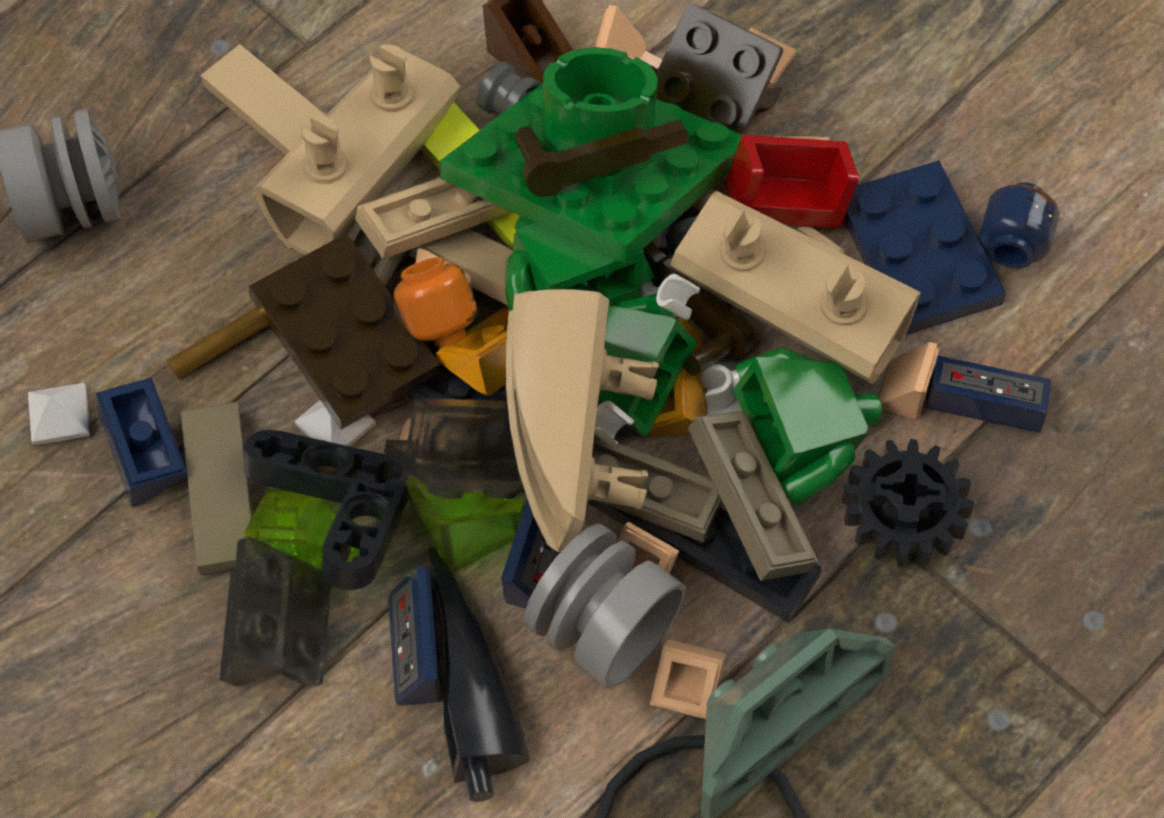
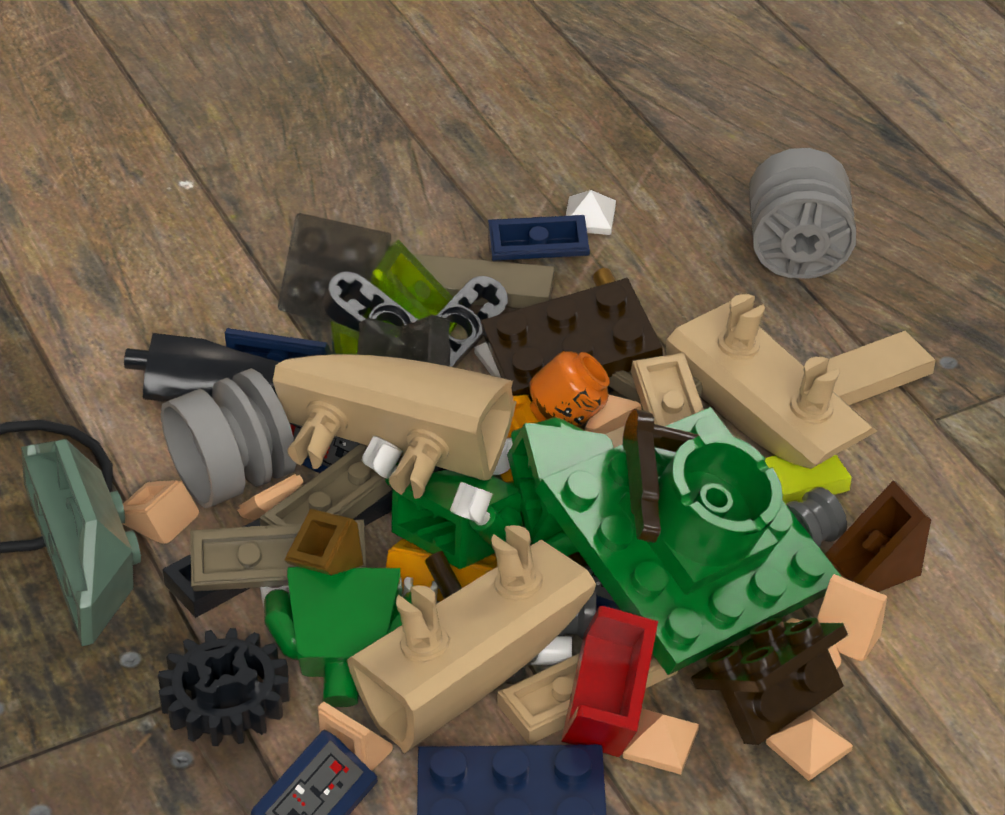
camera: 105 degrees right, 20 degrees down
(768, 420) = (326, 544): none -> pearl gold slope

